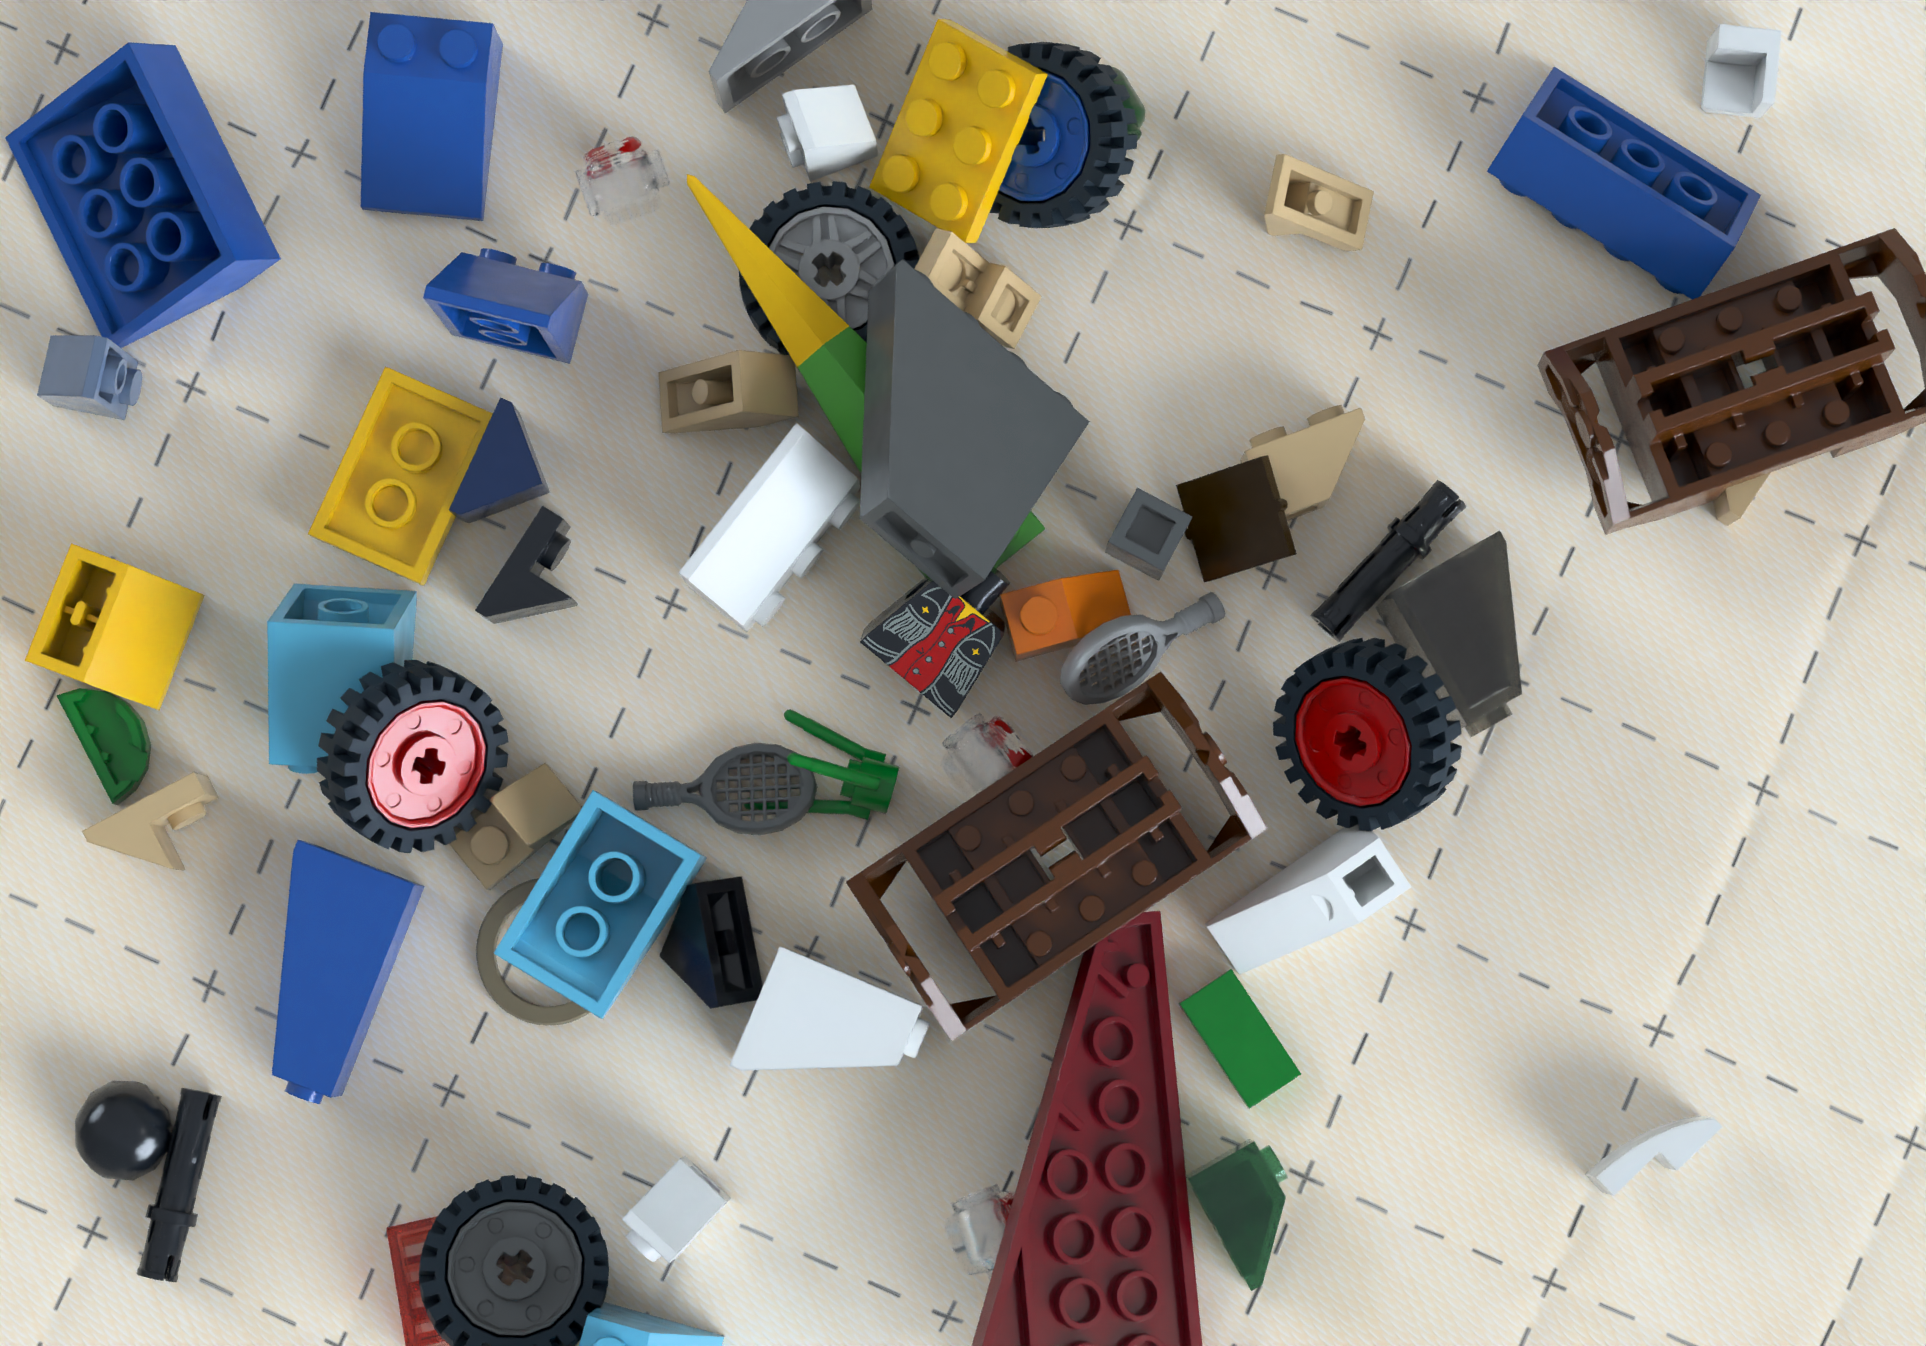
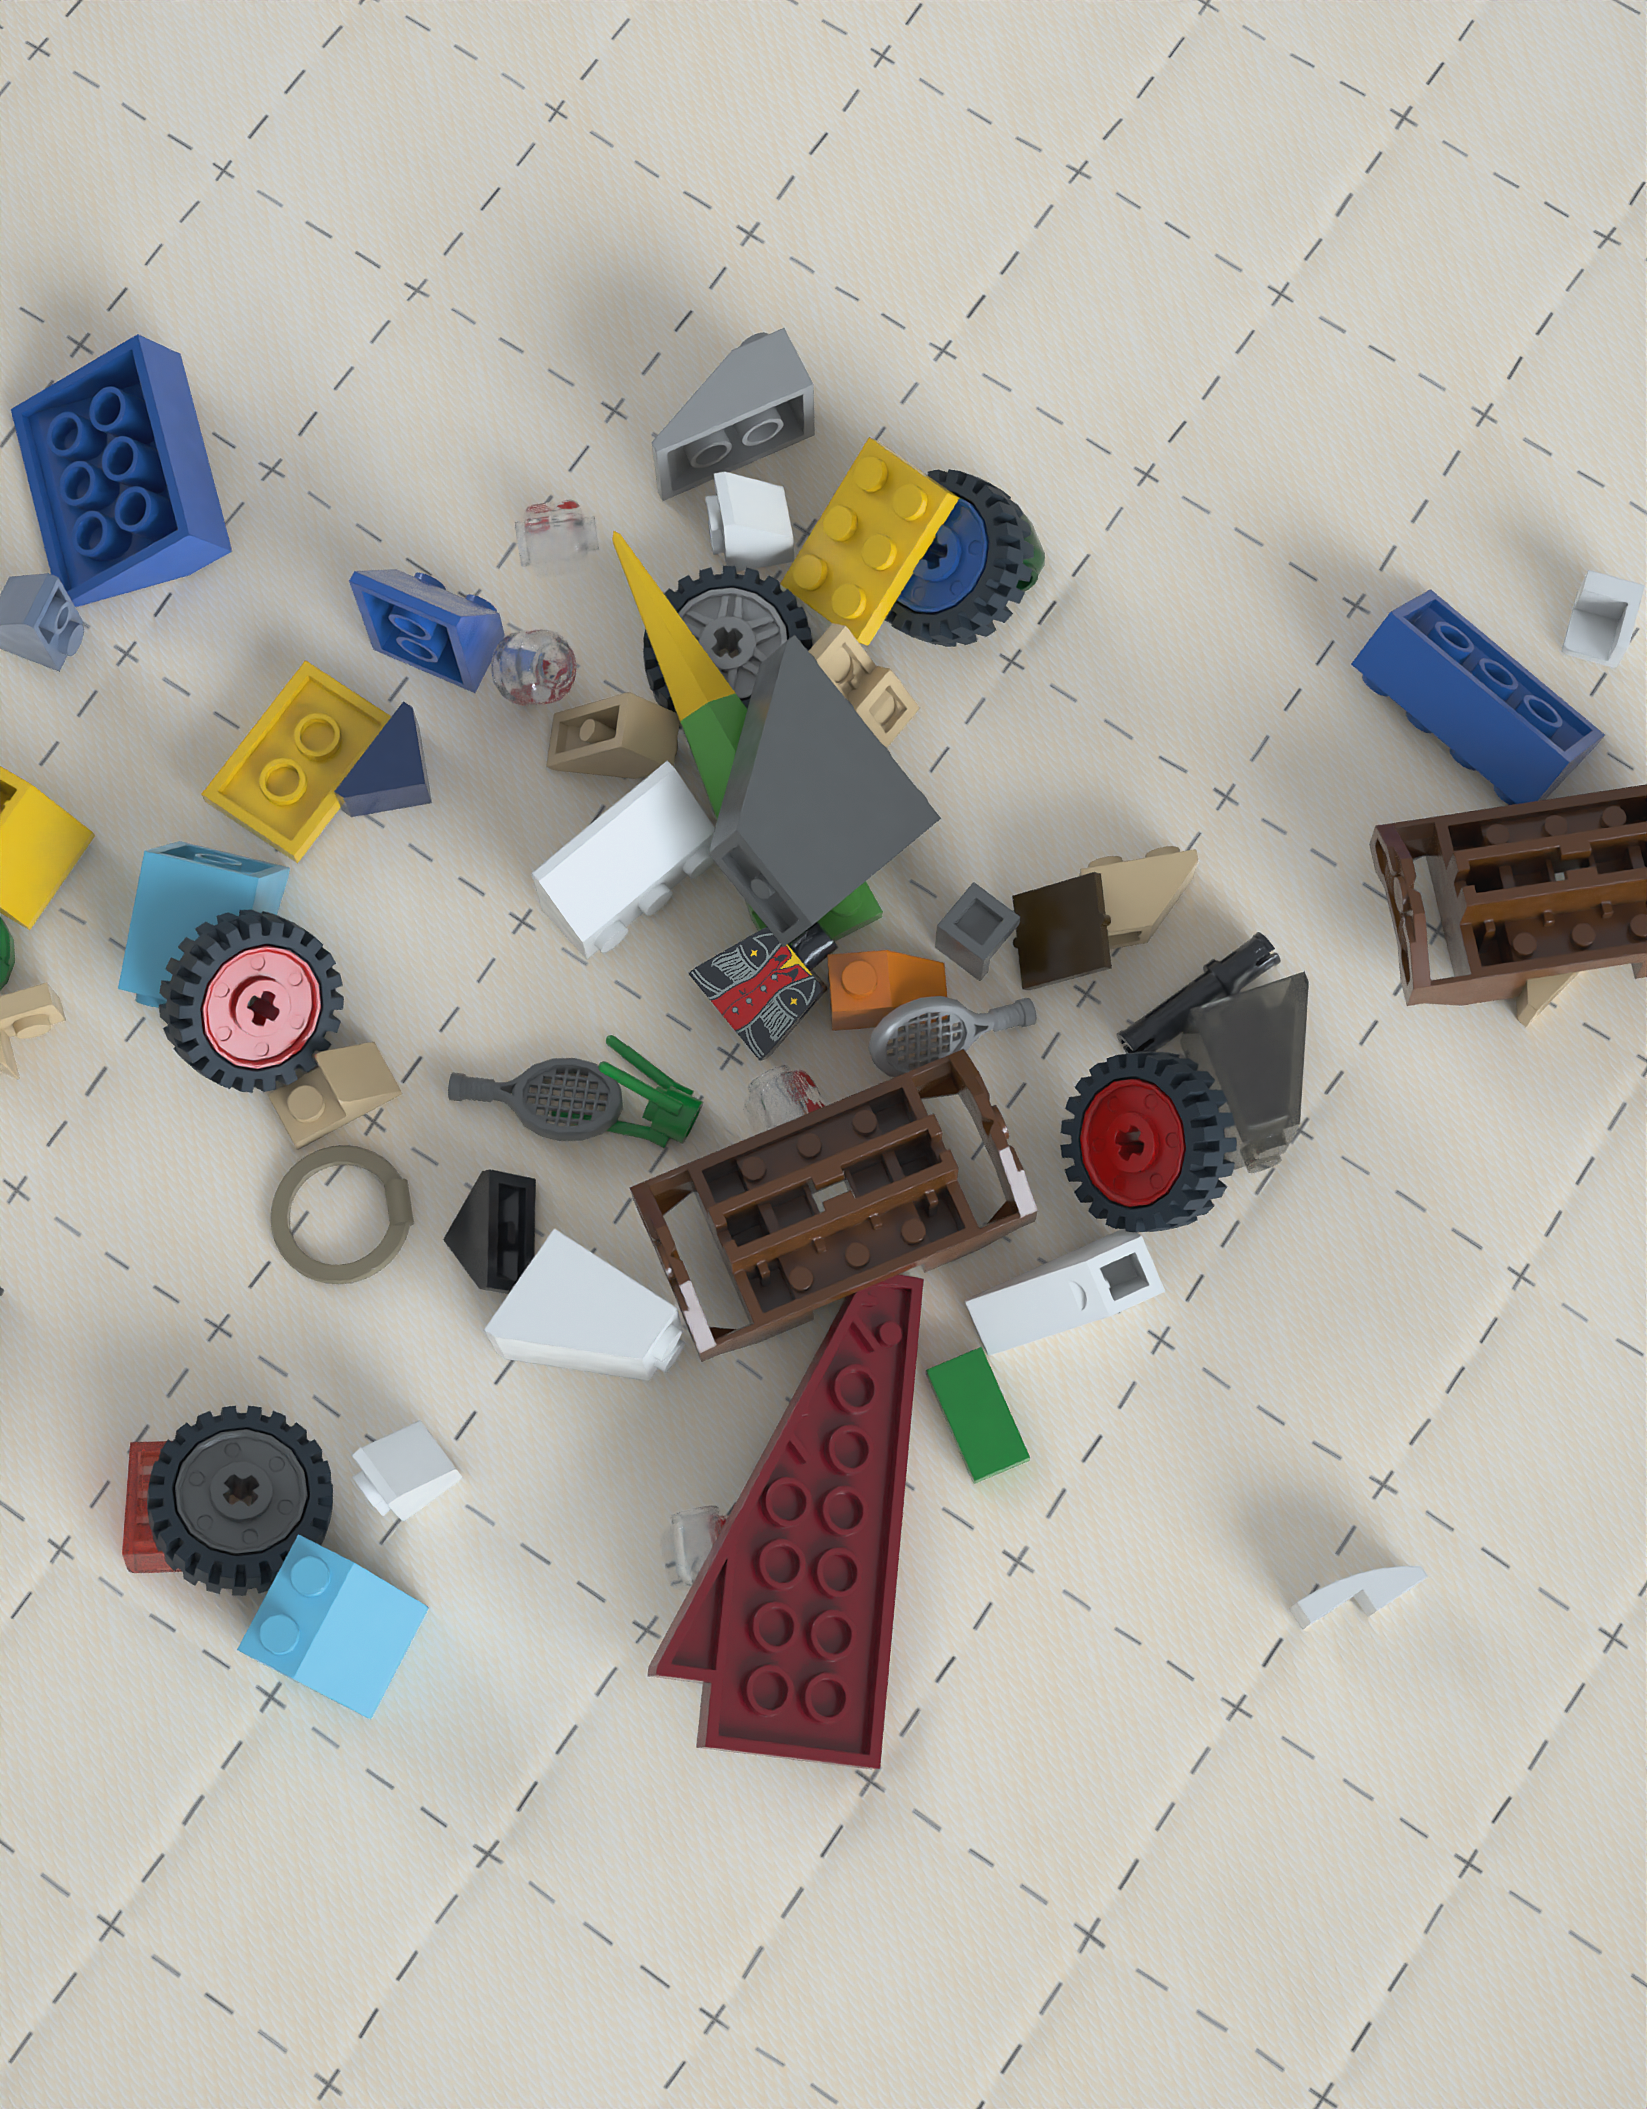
camera: 10 degrees right, 10 degrees down
(336, 962) = (138, 1186): blue slope -> none
(428, 115) = (393, 451): blue slope -> none
(518, 588) = (385, 875): black slope -> none
(599, 904) = (397, 1169): medium azure slope -> none
(629, 331) = (533, 667): none -> clear head
(1243, 1204) = (950, 1568): clear green slope -> none
(1316, 205) = (1186, 664): tan slope -> none

